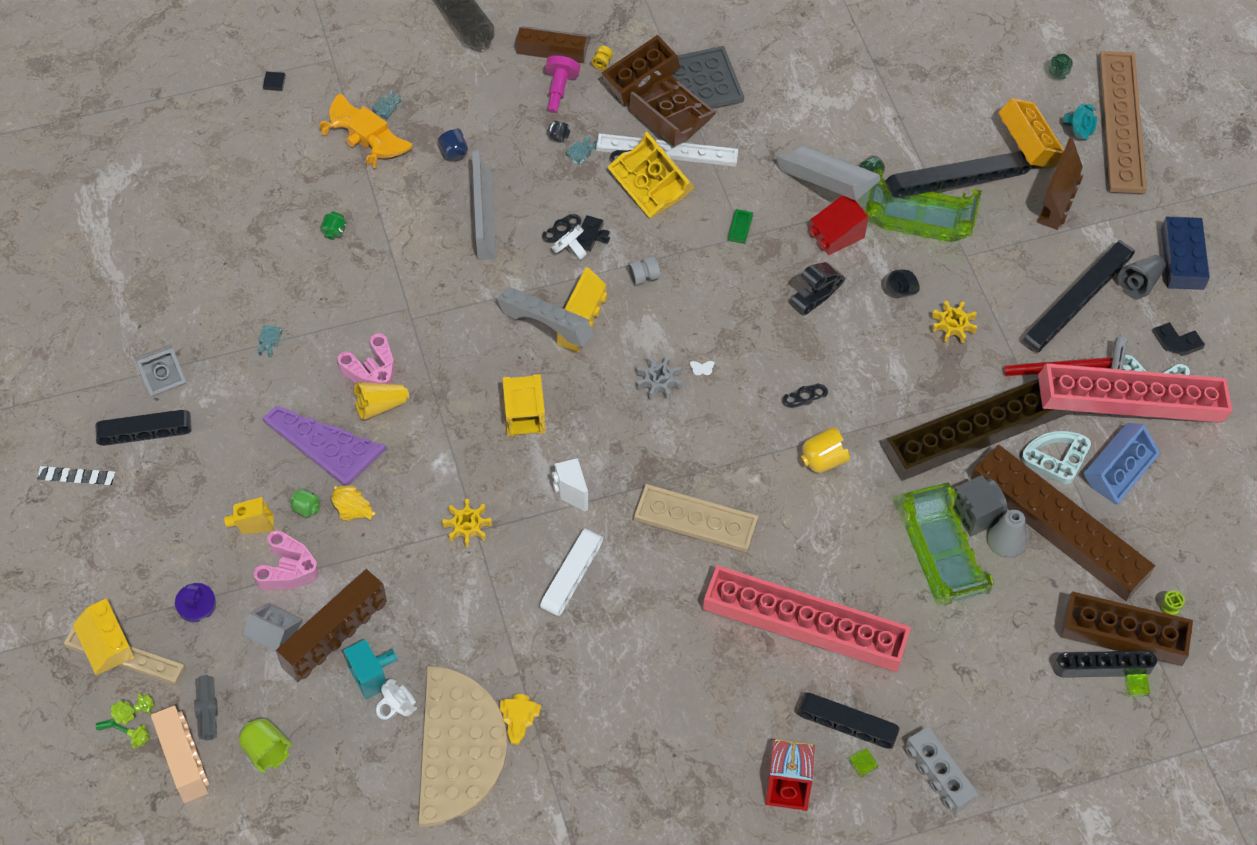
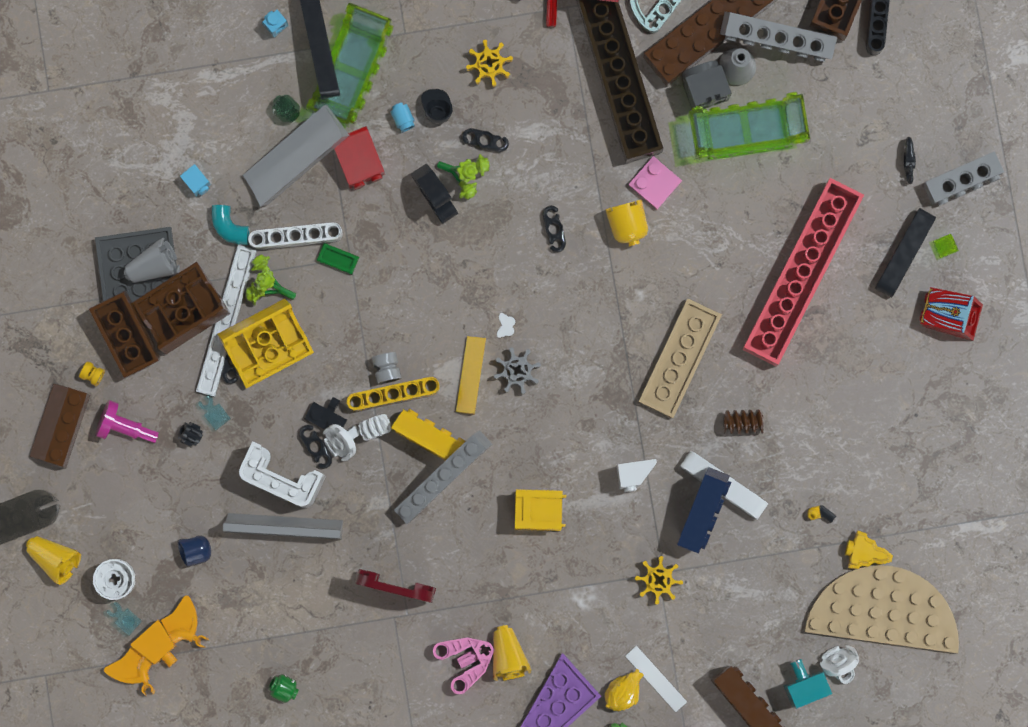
camera: 85 degrees left, 25 degrees up
(367, 536) = (656, 679): none -> white sticker
(420, 88) = (108, 589): none -> white wheel
(433, 48) = (53, 558): none -> yellow cone
(433, 284) = (371, 580): none -> dark red tile
(531, 176) = (254, 472): none -> white windscreen
(542, 544) = (706, 504): none -> dark blue brick
(556, 669) = (819, 512): none -> arm
(585, 259) = (374, 427): none -> white gear
(620, 280) = (383, 393): none -> yellow beam
(639, 581) = (743, 421): none -> reddish brown piece
(649, 343) = (471, 375): none -> yellow slope
(704, 160) = (265, 281): none -> lime plant
(709, 82) = (153, 263): none -> light grey cone
(751, 137) = (226, 228): none -> teal cylinder
(755, 189) = (286, 236): none -> white beam
(790, 110) = (196, 180): none -> medium azure brick
(844, 300) = (467, 171): none -> lime plant
(870, 478) = (655, 183): none -> bright pink plate
(879, 335) = (479, 133): none -> black piece
(885, 258) = (402, 117): none -> medium azure brick
(948, 713) = (909, 160): none -> black piece
(951, 147) = (275, 22): none -> medium azure brick
(1051, 511) = (825, 43): none -> light grey brick

